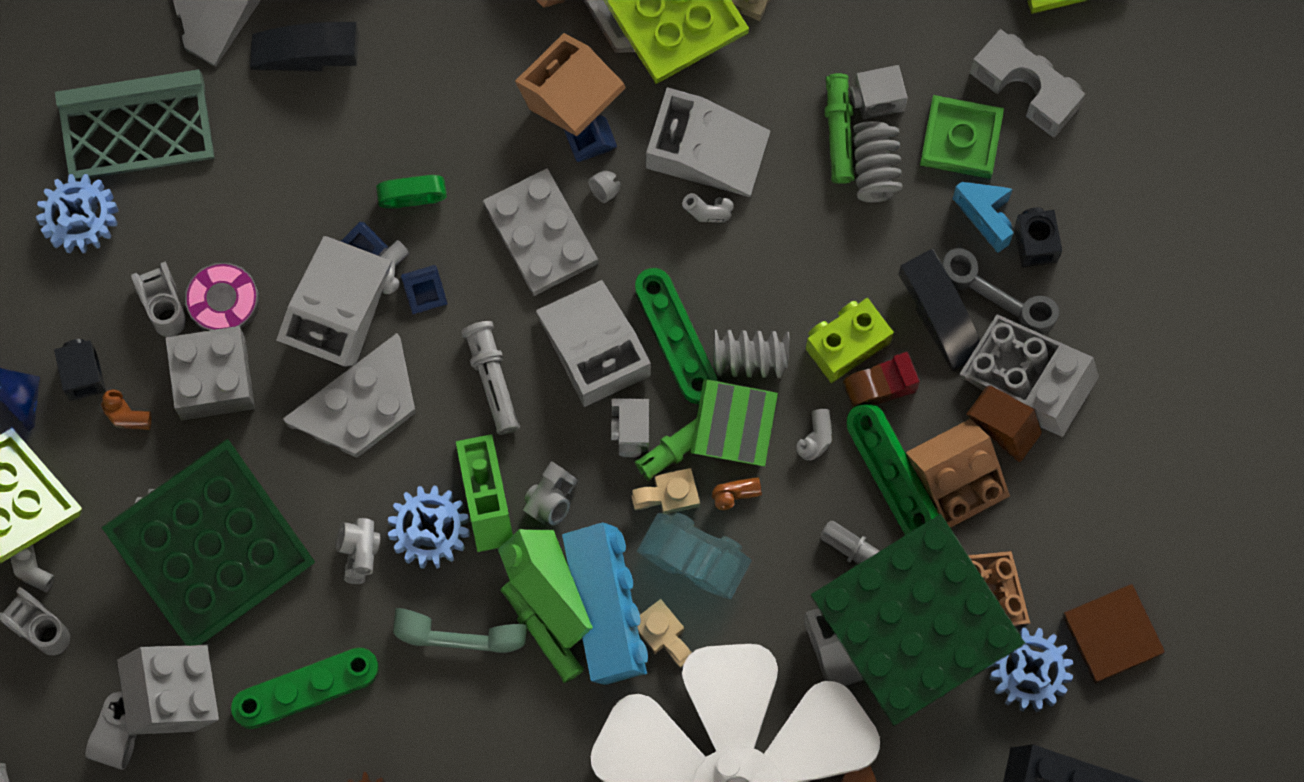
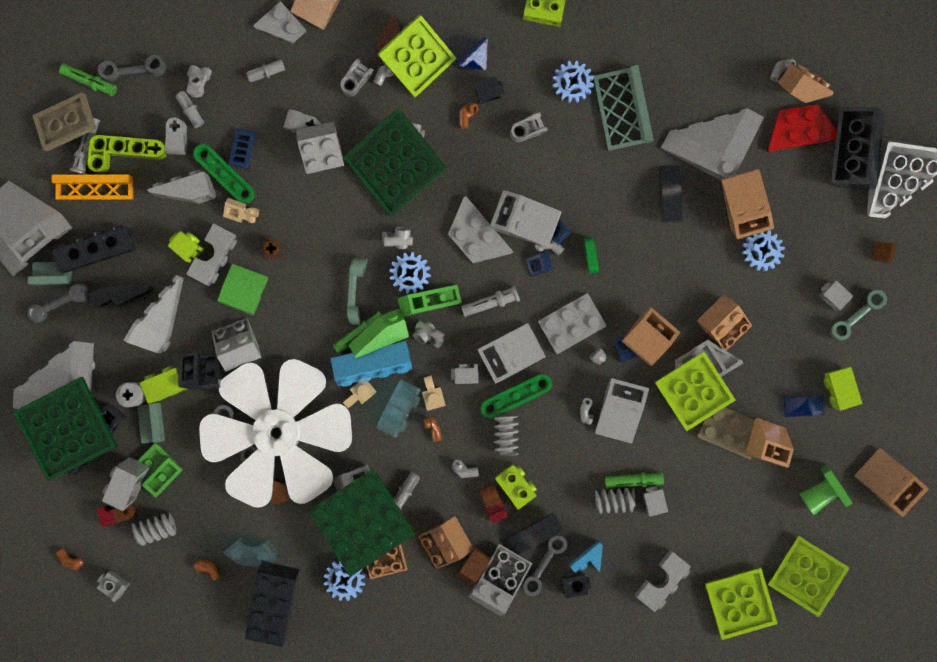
camera: 90 degrees right, 15 degrees up
(210, 373) = (487, 157): light grey brick -> none
(221, 297) = (530, 160): tile -> none
(305, 688) = (327, 215): green plate -> none
(669, 451) = (460, 402): bright green pin -> none
(734, 422) = (468, 427): tile -> none
(890, 467) = (446, 509): green plate -> none
(962, 136) = (632, 545): bright green tile -> none
(1113, 633) = (365, 621): reddish brown tile -> none

